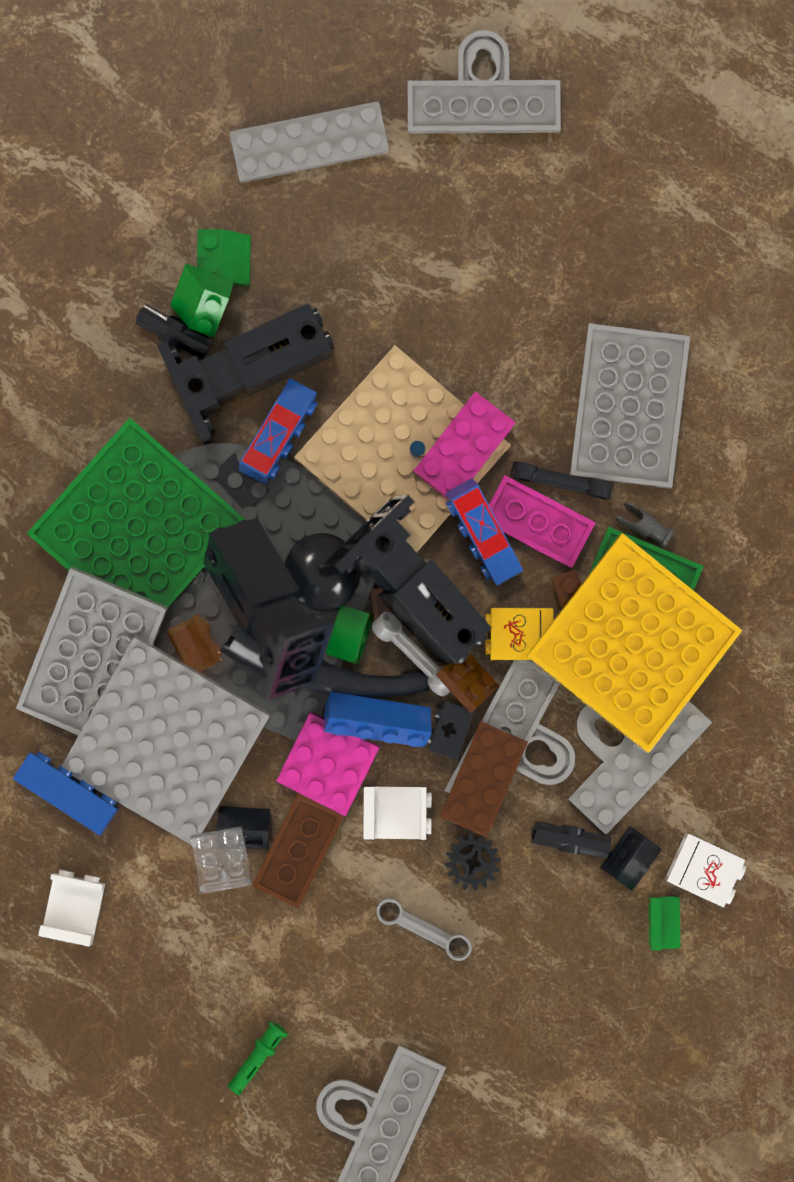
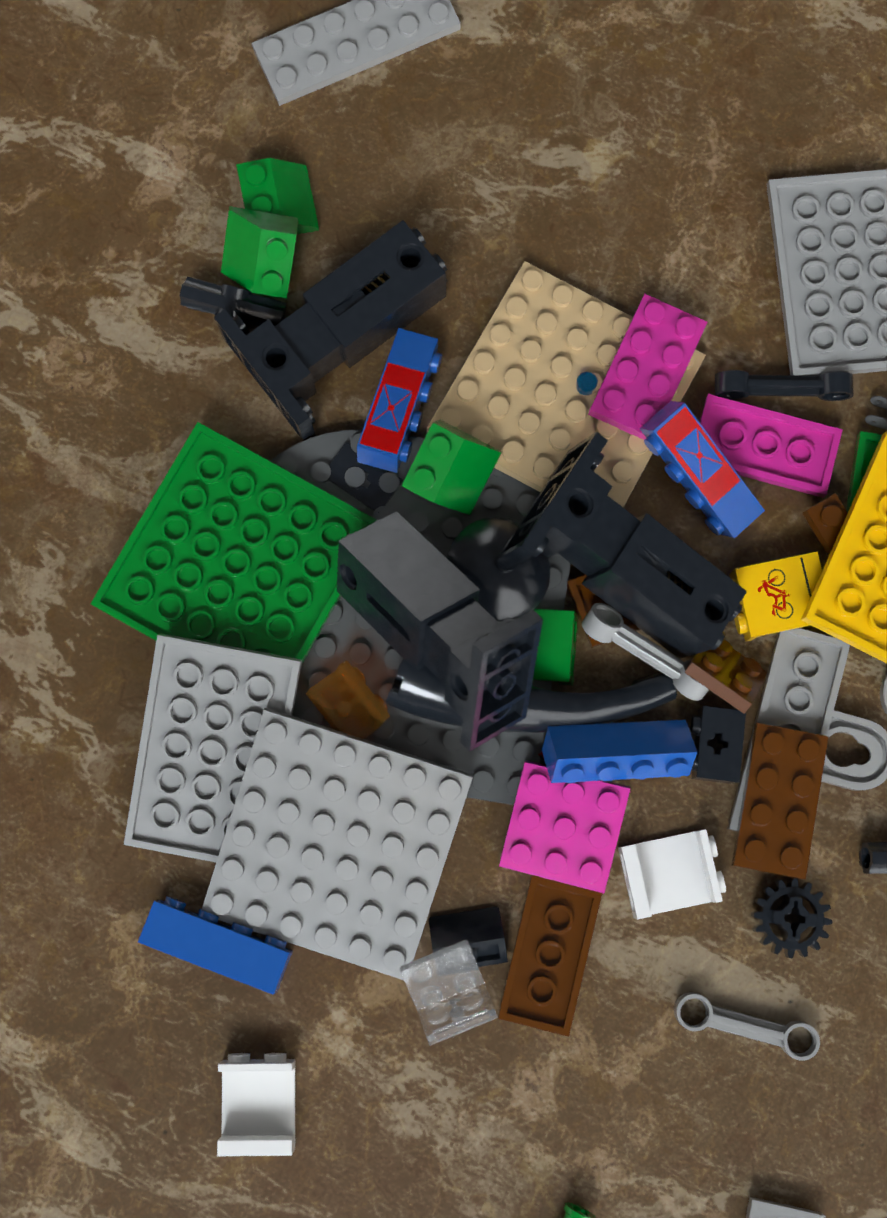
camera: 10 degrees left, 5 degrees down
(304, 492) = (451, 468): none -> green slope

